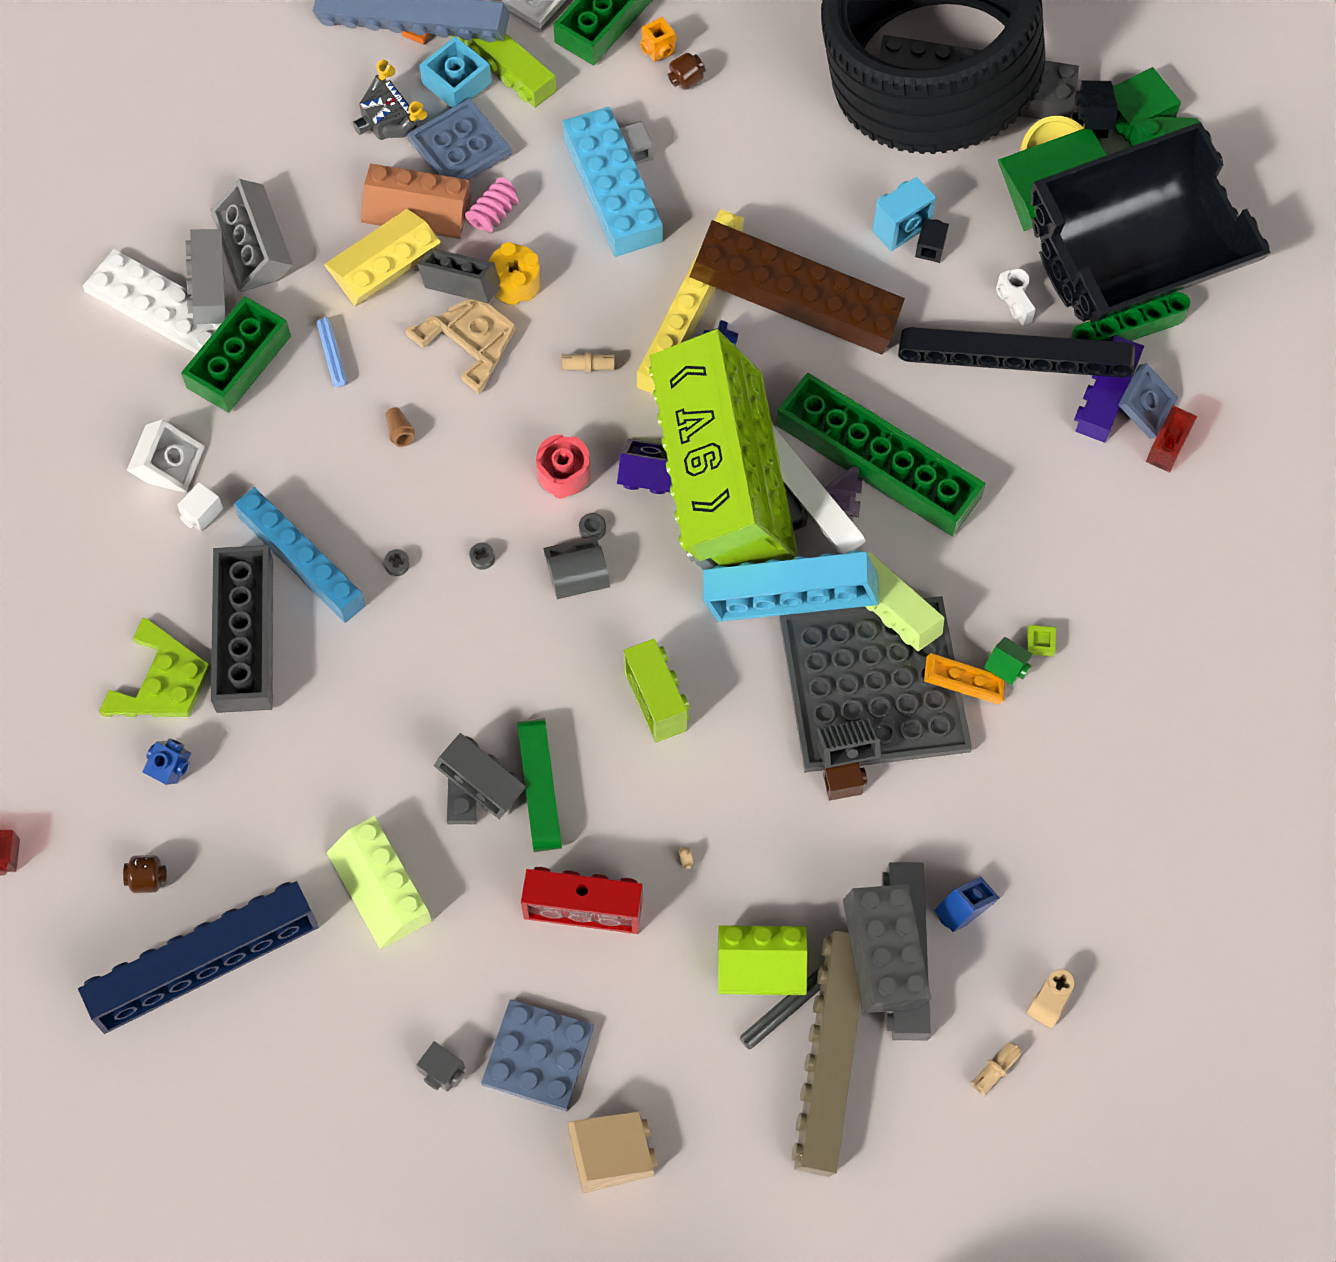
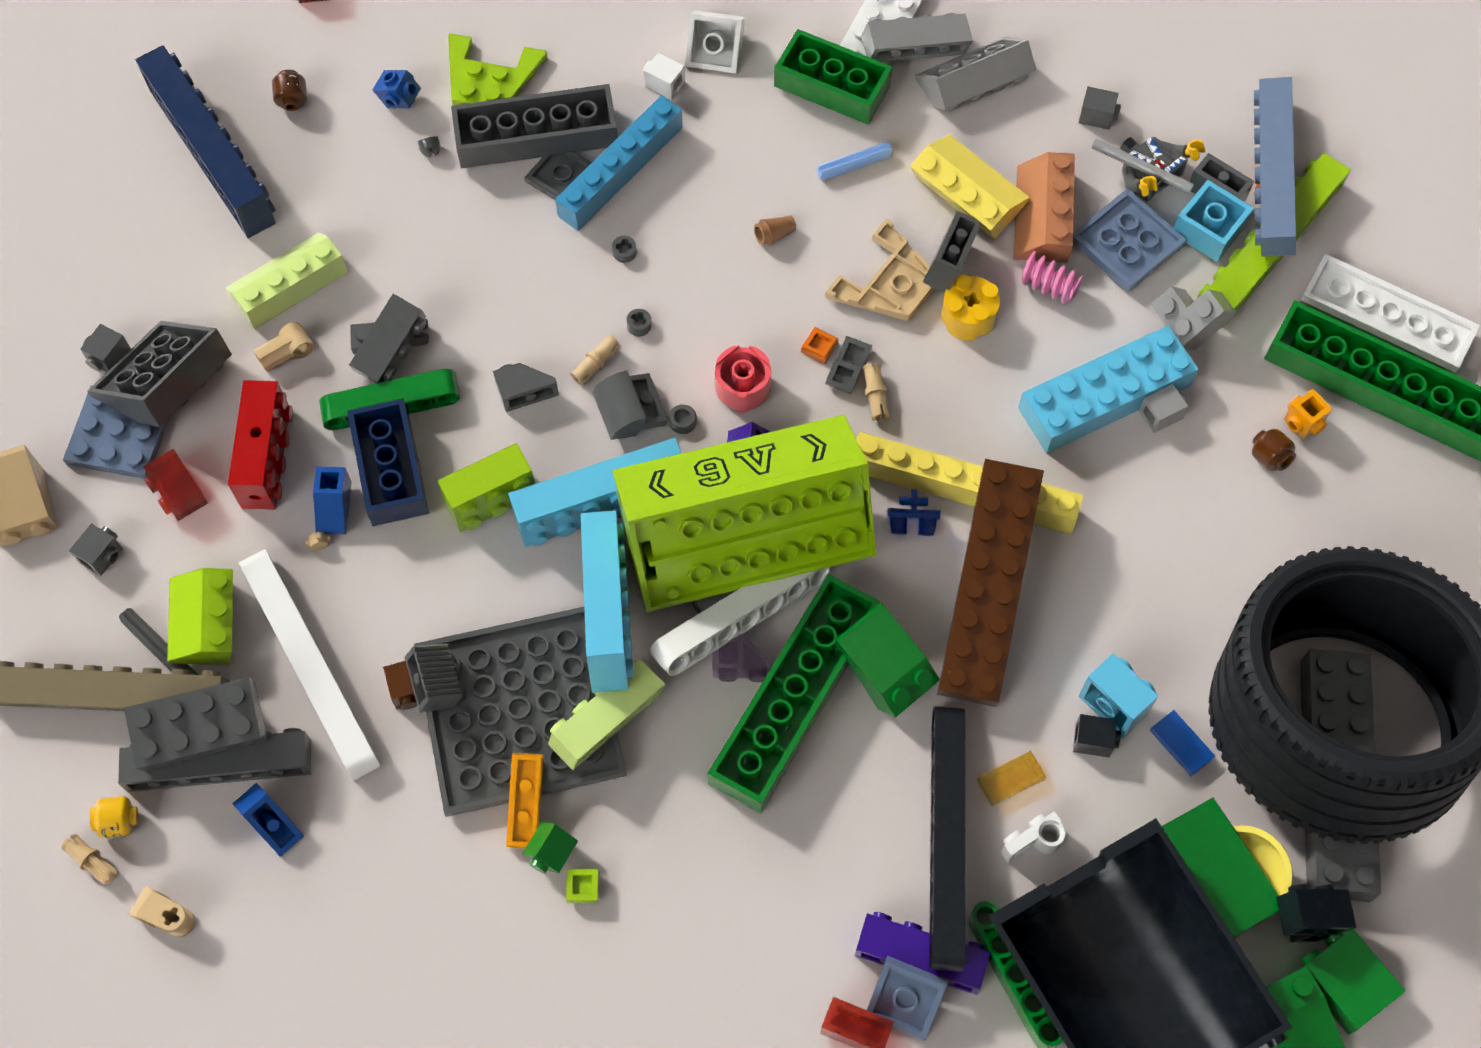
camera: 85 degrees right, 0 degrees up
(240, 737) = (428, 144): none -> dark grey hinge
(299, 615) = (556, 172): none -> dark grey tile
(313, 143) = (1099, 108): none -> dark grey brick
(392, 114) = (1142, 166): none -> light grey bar
(408, 61) = (1221, 175): none -> dark grey brick
(462, 880) = (290, 343): none -> tan piece
(480, 1003) = (162, 371): none -> dark grey slope
(520, 595) = (595, 360): none -> tan pin
(529, 404) = (819, 345): none -> orange tile
(541, 662) = (523, 386): none -> dark grey slope
(555, 383) = (849, 365): none -> dark grey slope
(558, 102) = (1193, 320): none -> light grey brick
(611, 992) = (174, 484): none -> clear red brick
(613, 782) = (387, 462): none -> dark blue brick
(648, 838) = (331, 499): none -> blue slope
(672, 593) = (557, 504): none -> medium azure brick
(674, 1068) = (96, 548): none -> dark grey brick
(812, 866) = (309, 665): none -> white beam
(864, 374) = (887, 661): none -> green slope
(944, 180) = (1182, 743): none -> blue tile
(959, 1042) = (113, 817): none -> yellow head
(961, 307) = (1011, 778): none -> clear yellow tile

